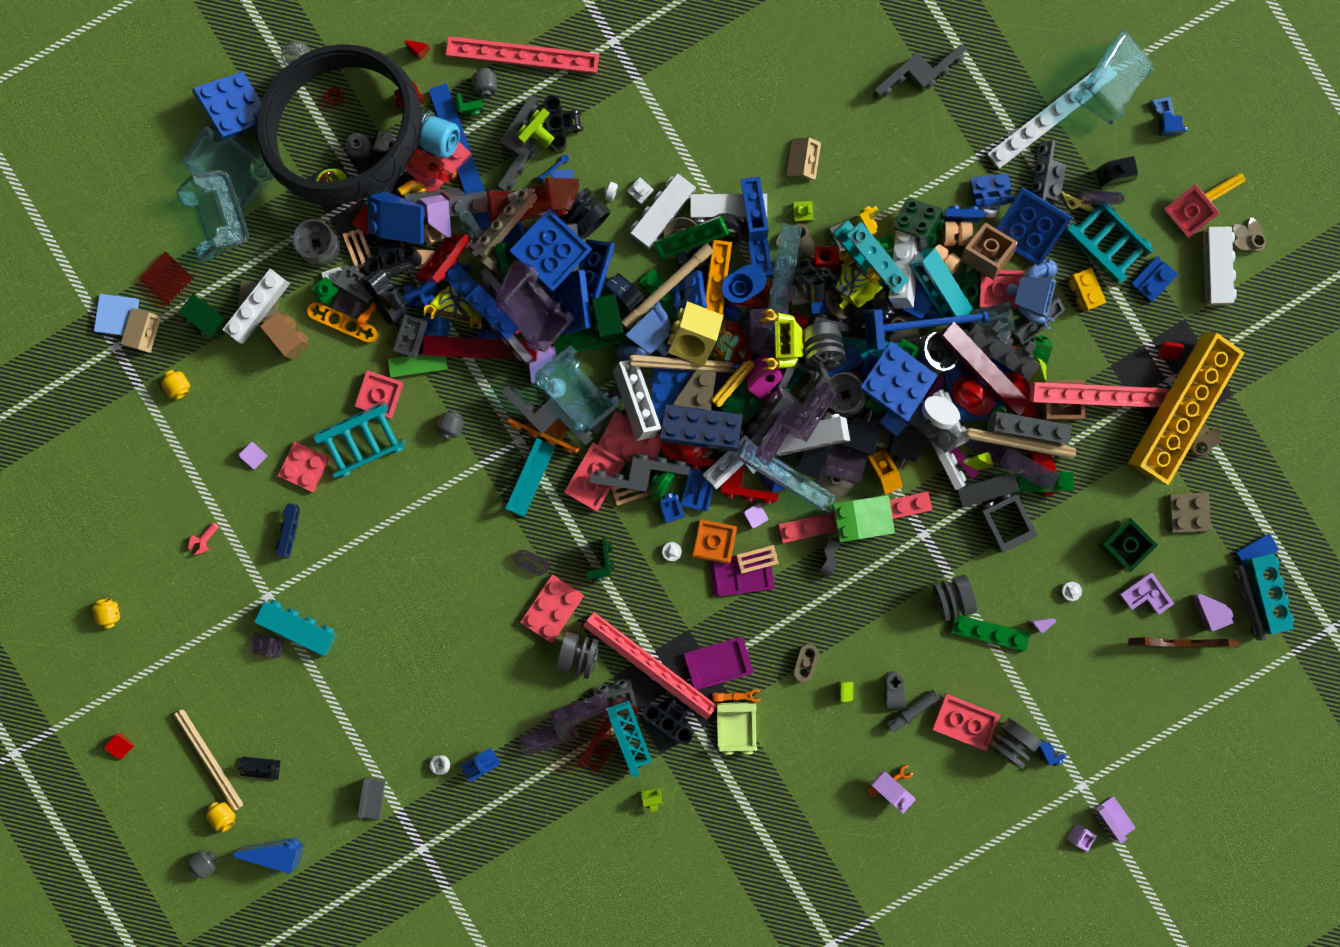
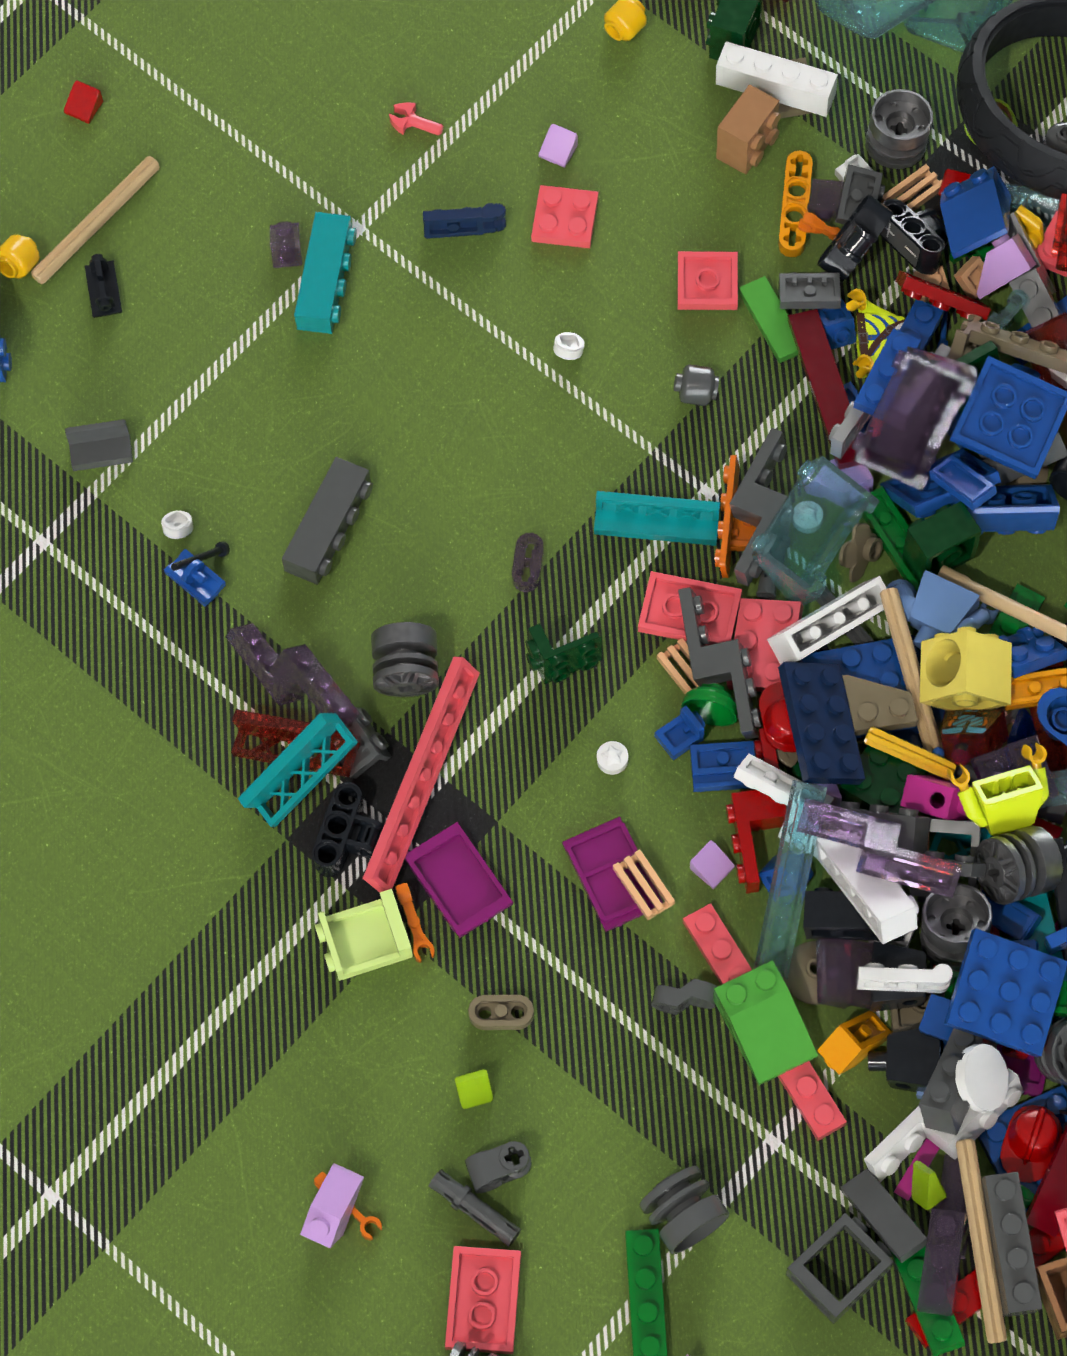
camera: 80 degrees right, 20 degrees down
(106, 613) = (268, 29): yellow head -> none
(325, 291) = (832, 161): green bracket -> none
(361, 421) = (639, 242): teal fence -> none
(396, 493) = (568, 346): none -> white tile
(420, 295) = (878, 289): blue hips -> none
(464, 743) = (221, 549): none -> black piece
(467, 674) = (327, 520): none -> dark grey brick
(552, 609) = (467, 612): coral plate -> none
(580, 293) = (963, 482): none -> blue tile
(589, 361) = (860, 550): none -> dark tan plate
(625, 292) = (990, 559): black beam -> none
(652, 798) = (212, 842): lime tile -> none
(714, 541) = (649, 814): orange plate -> none
(869, 433) = (904, 978): none -> white plate

